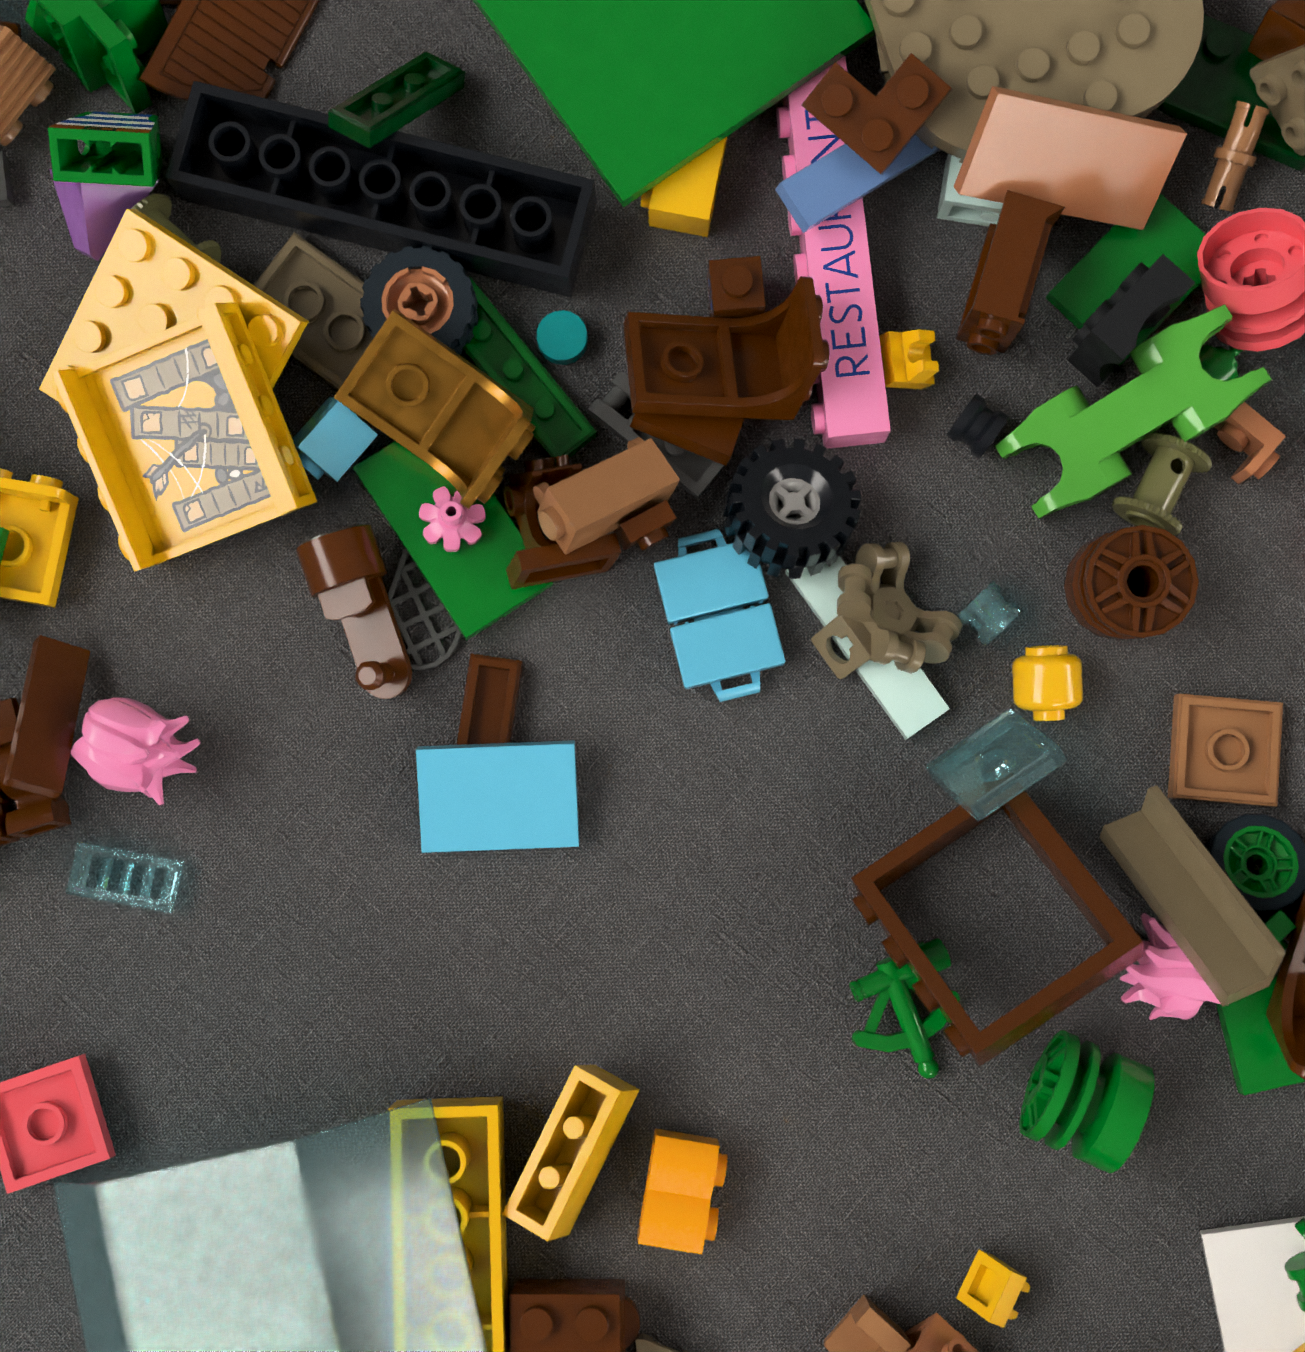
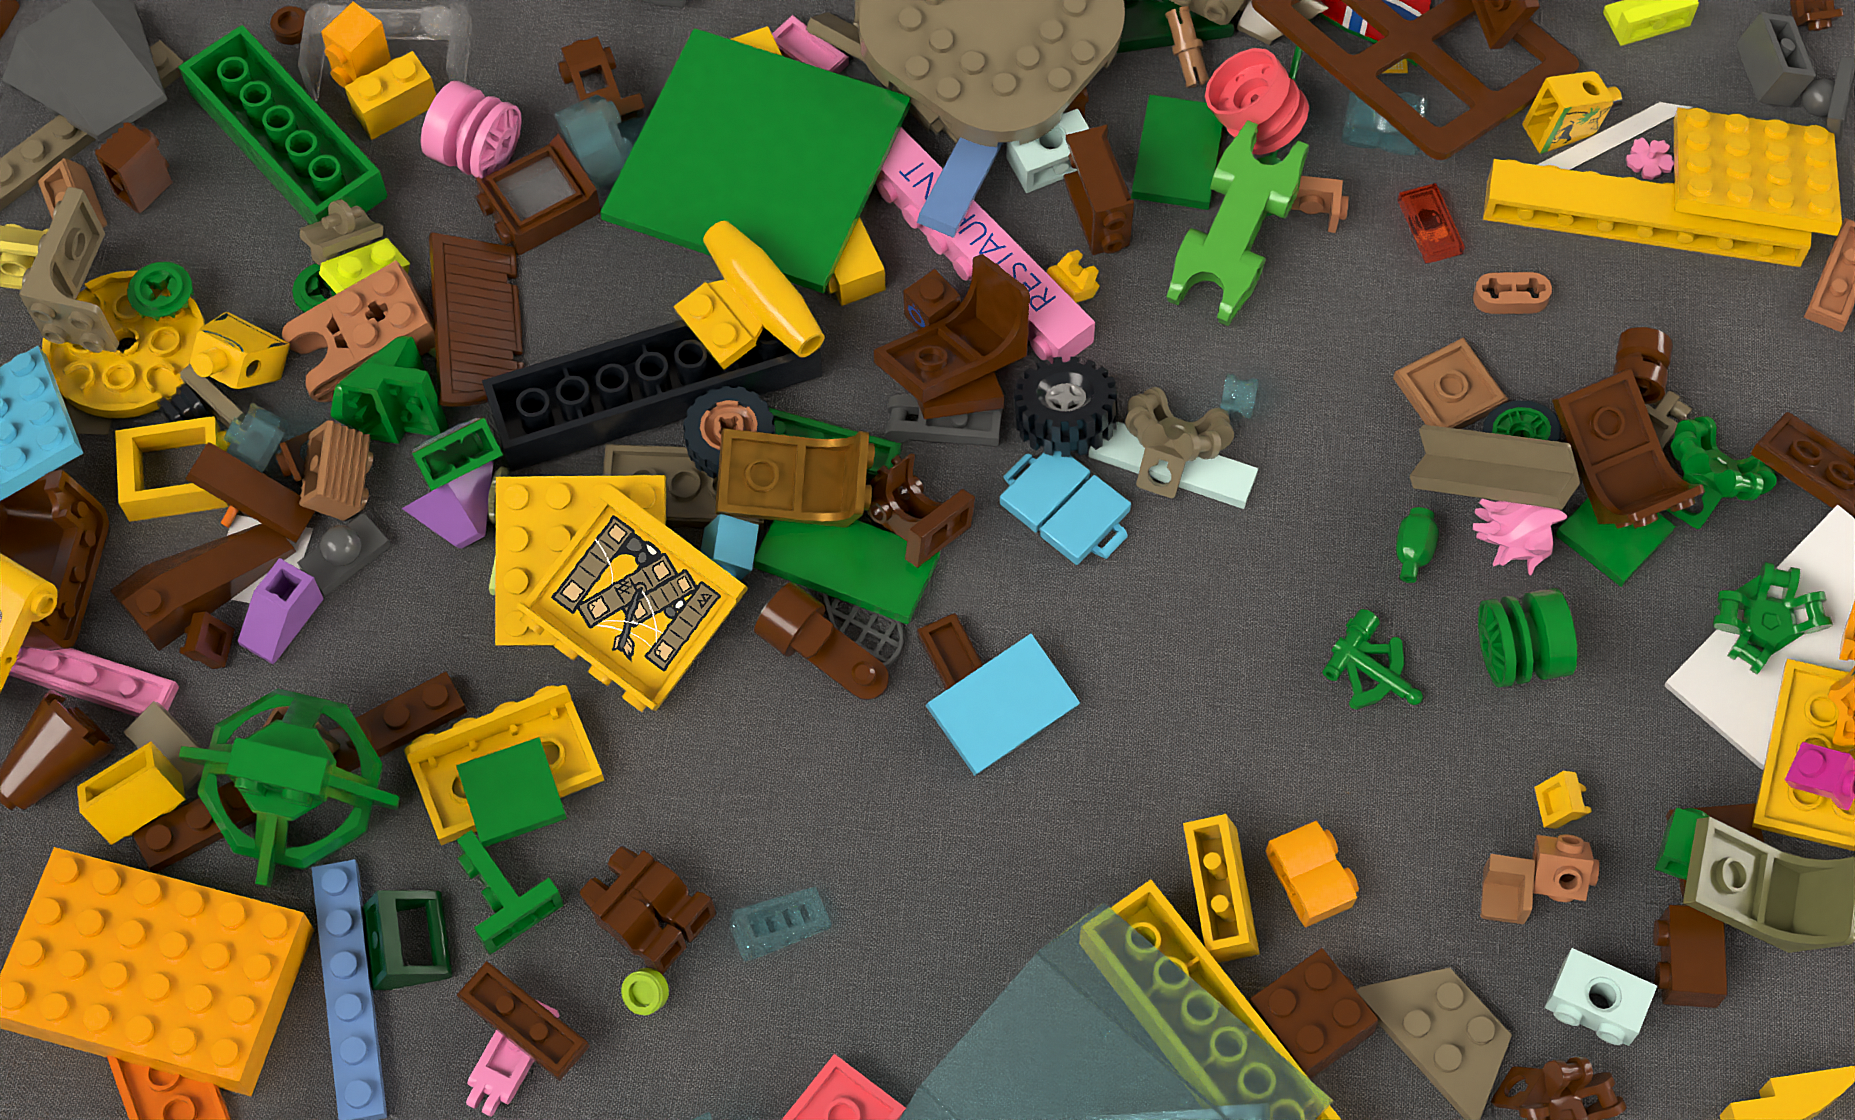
camera: 35 degrees left, 20 degrees down
(47, 717) = (657, 838): reddish brown tile -> none
(131, 747) = (731, 822): bright pink hair -> none
(396, 99) = (625, 316): dark green tile -> none
(449, 527) = (845, 549): bright pink plant -> none
(521, 170) = (751, 297): none -> yellow plate
(562, 337) = (834, 402): teal tile -> none
(605, 495) = (941, 465): medium nougat brick -> none
(646, 527) = (970, 474): reddish brown bracket -> none
(882, 123) = (950, 148): reddish brown plate -> none
(978, 426) = (1147, 292): black wheel -> none
(995, 764) = (1312, 475): clear light blue tile -> none
(1045, 913) = (1416, 542): none -> green plant
(1047, 681) = (1307, 412): yellow head -> none
(1069, 155) = (1089, 93): nougat tile -> none
(1117, 322) = (1193, 168): black brick -> none
(1122, 941) = (1397, 503): reddish brown window -> none
(1161, 579) = (1314, 319): reddish brown wheel -> none
(1162, 482) = (1292, 271): olive hose -> none

